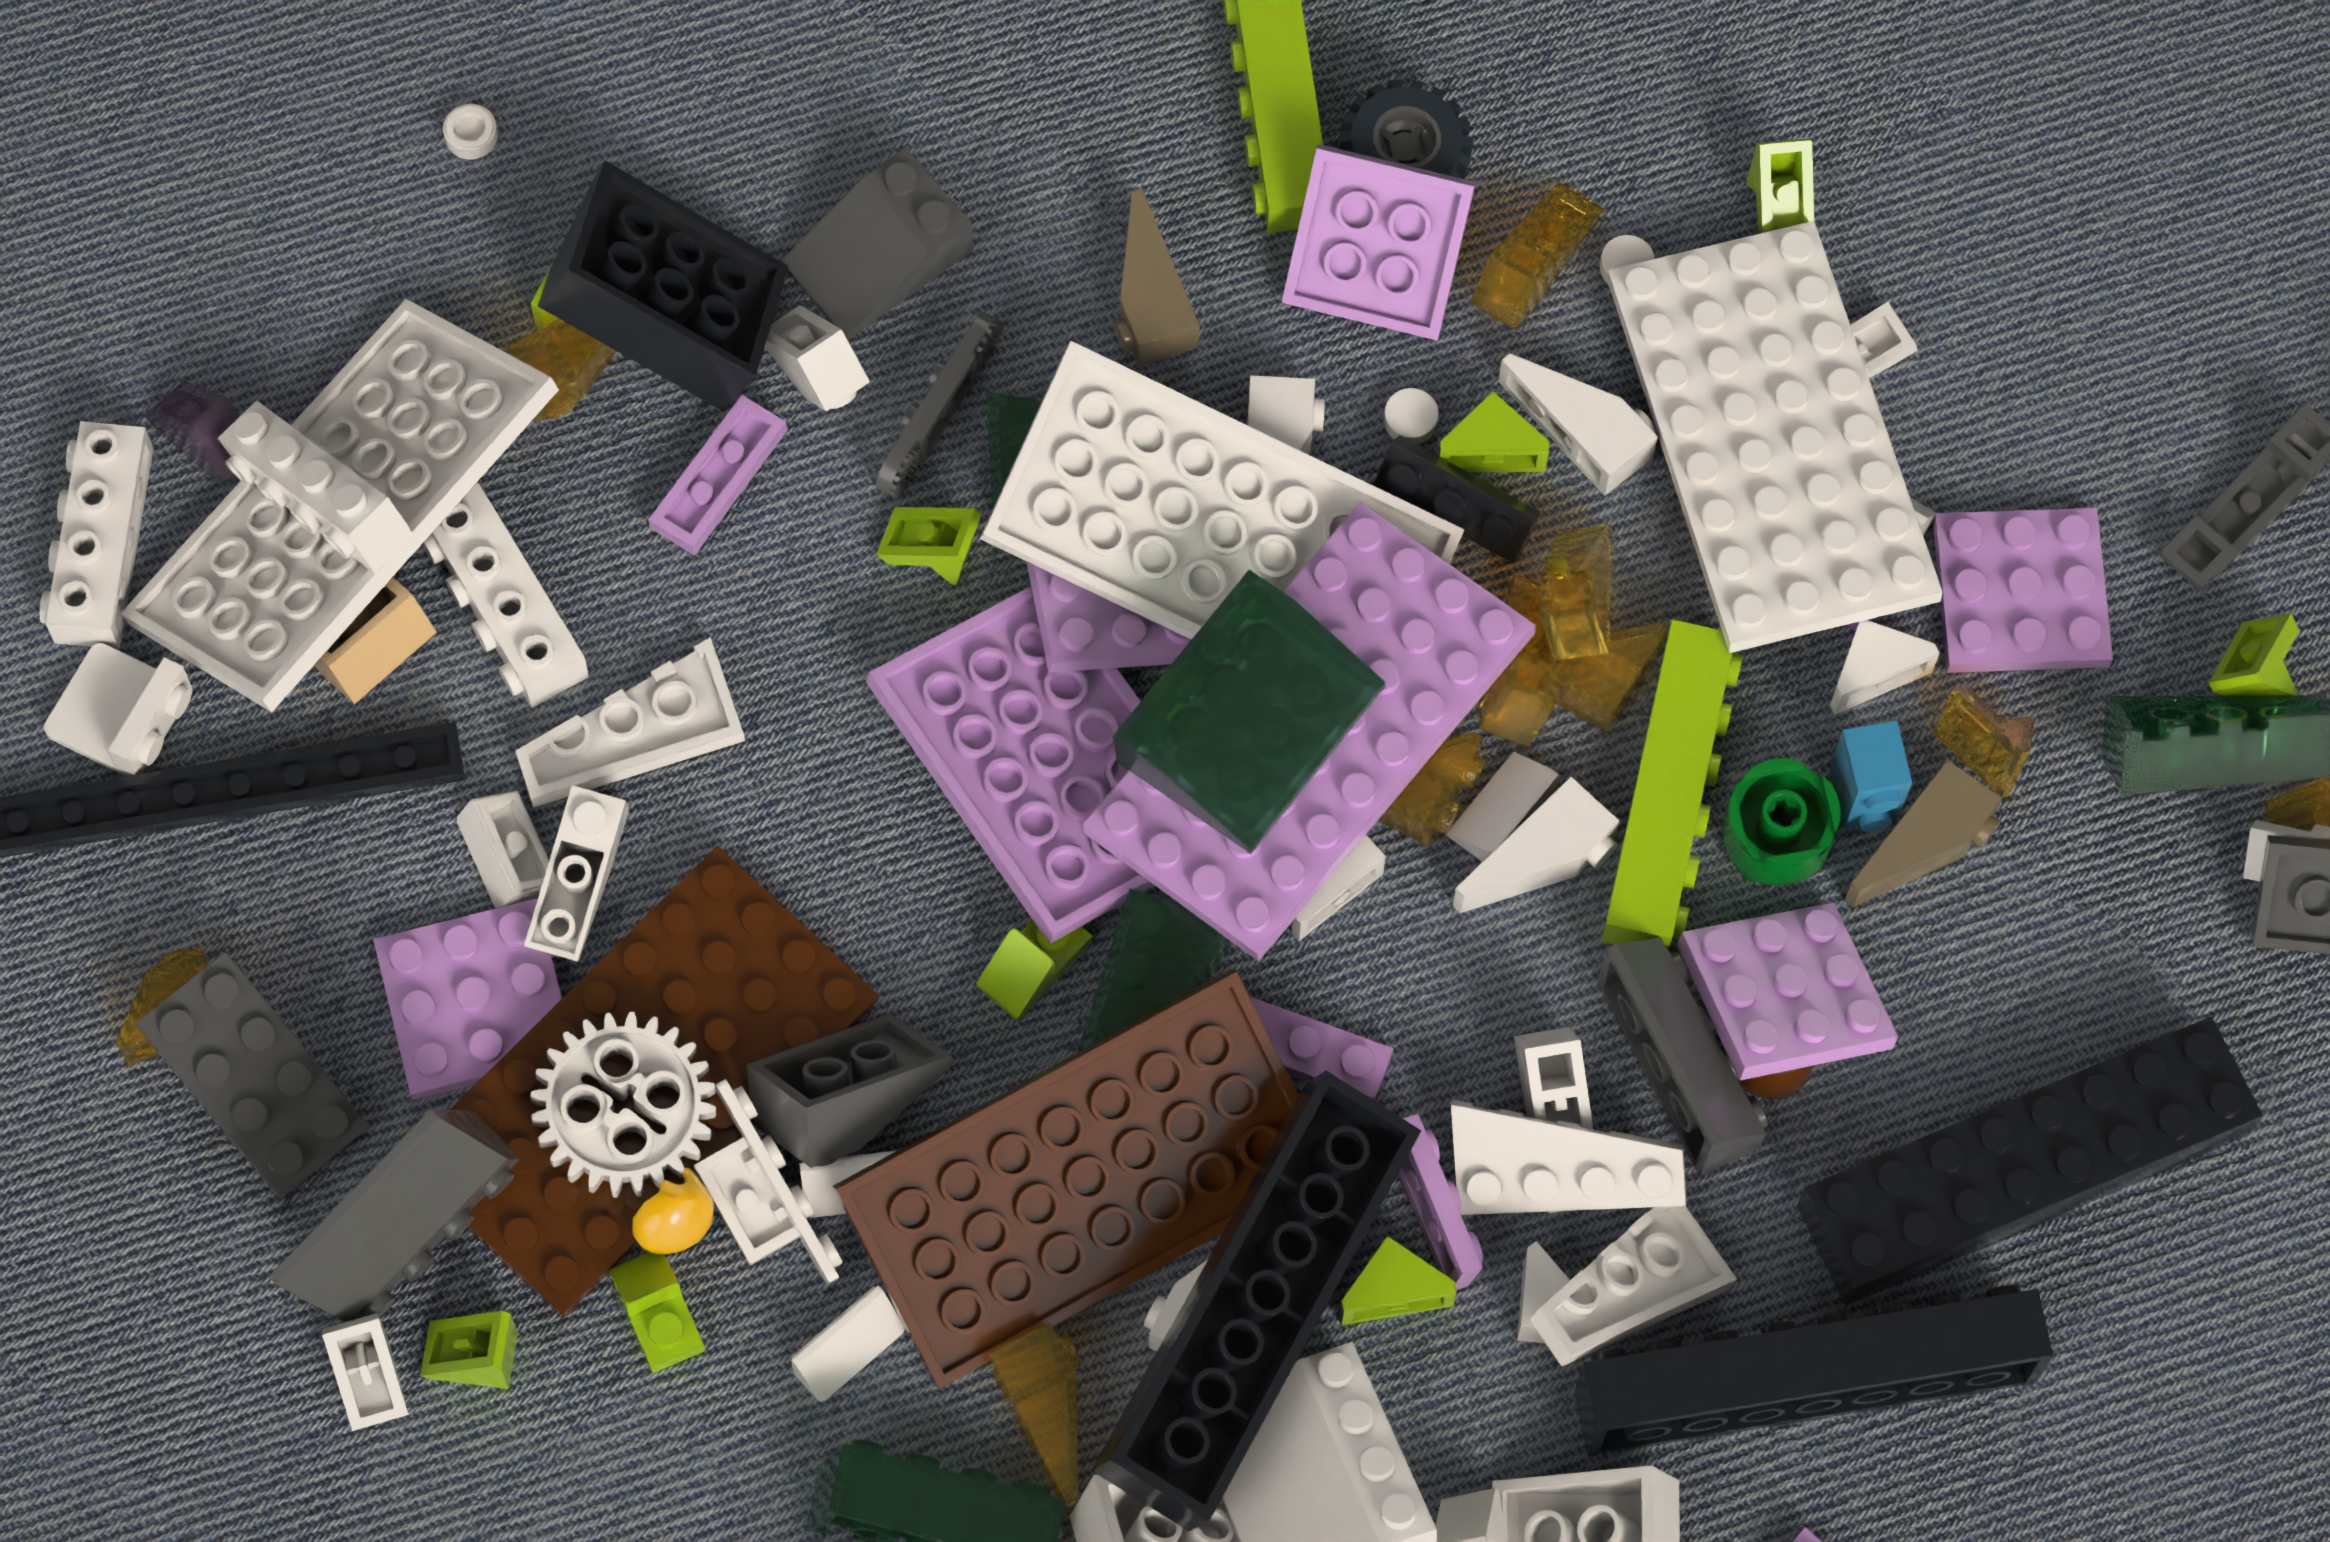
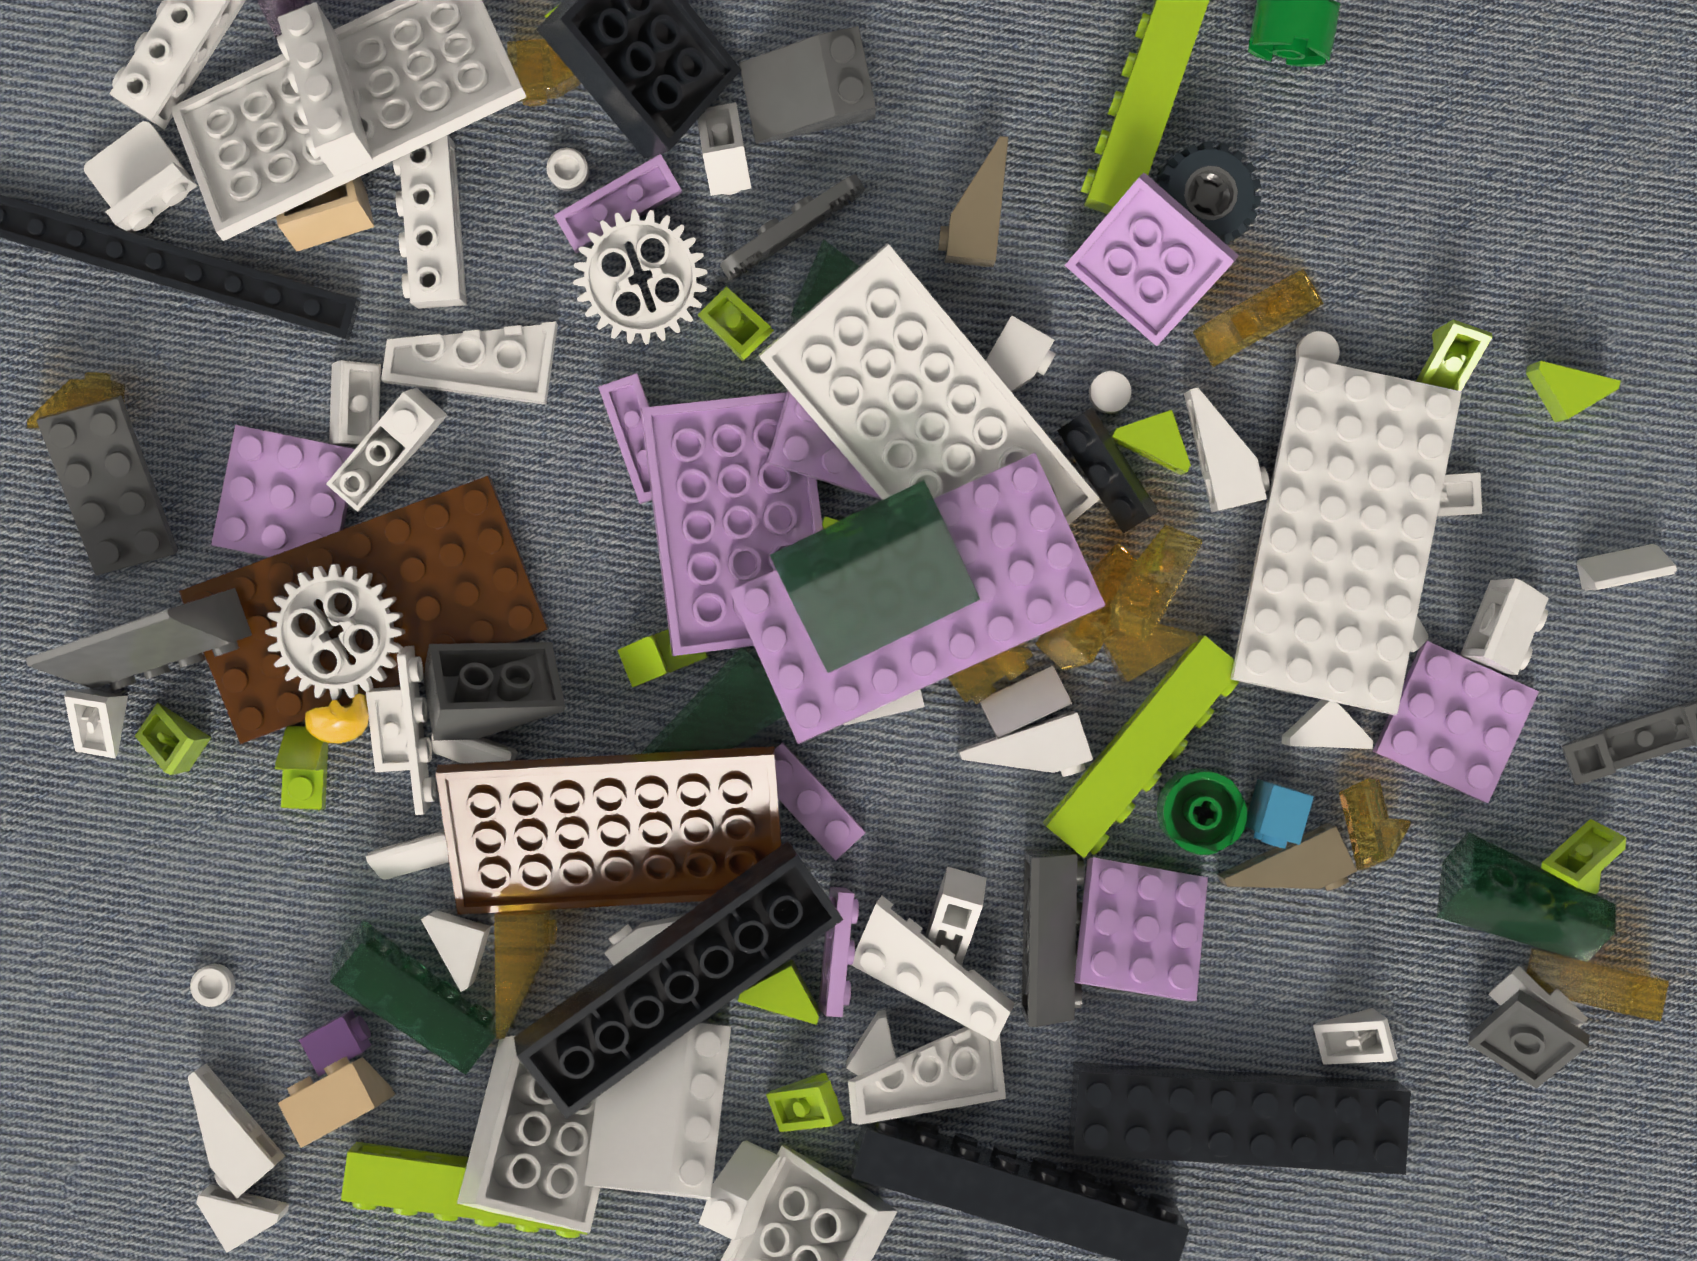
camera: 25 degrees right, 20 degrees up
(636, 467) = (567, 169): none -> white tile
(751, 571) = (605, 289): none -> white gear
(845, 699) = (623, 404): none -> lavender plate
(958, 1420) = (459, 944): none -> white slope
(1495, 1405) = (805, 1104): none -> lime slope
(1933, 166) = (1567, 389): none -> lime slope
(2015, 447) = (1506, 626): none -> white slope
(2114, 330) = (1624, 567): none -> white slope
(2116, 999) = (1355, 1038): none -> white slope

